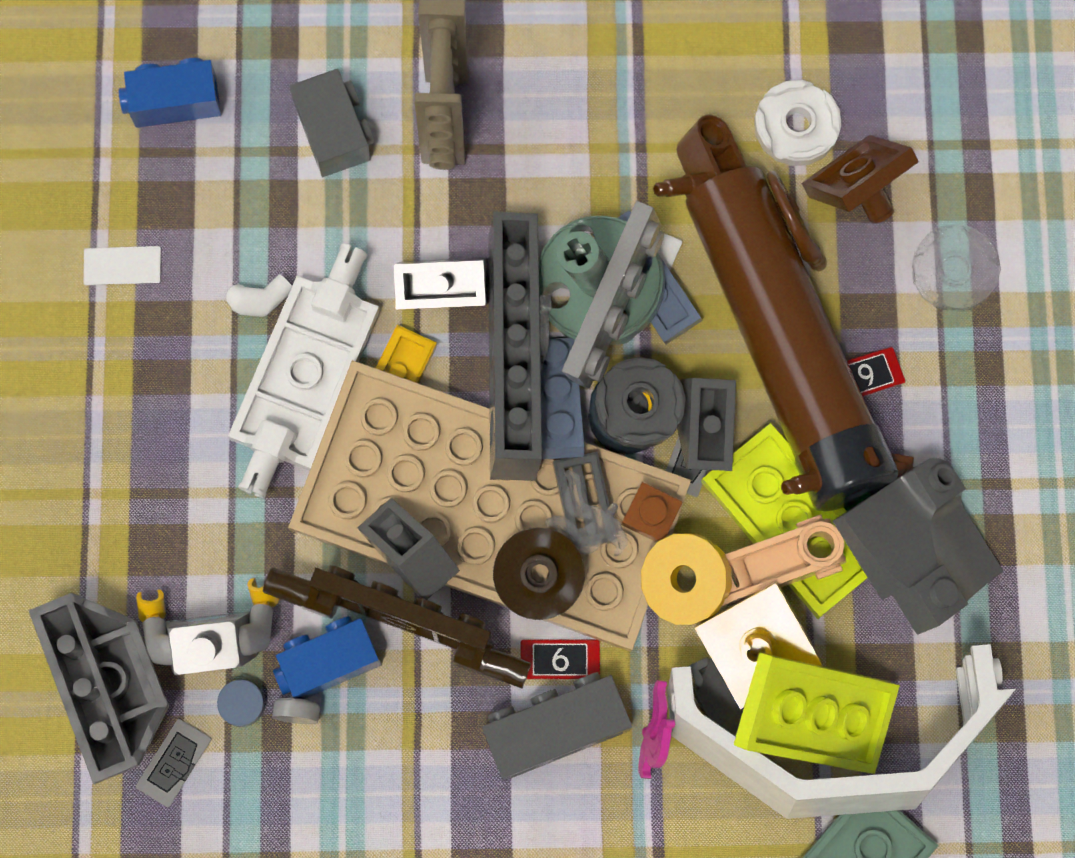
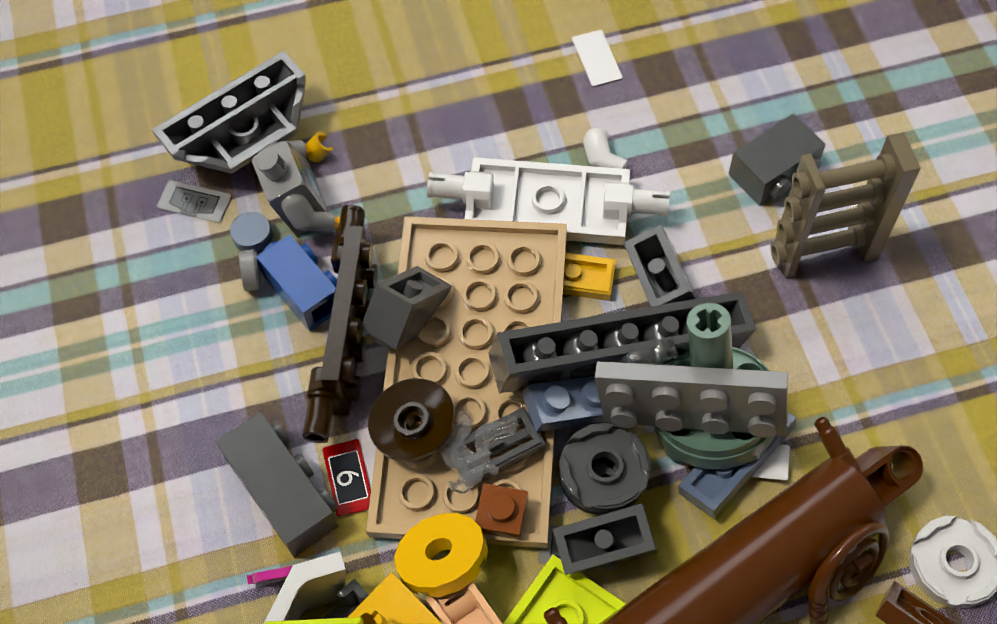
camera: 80 degrees right, 15 degrees down
(170, 93) = (753, 44): blue brick -> none

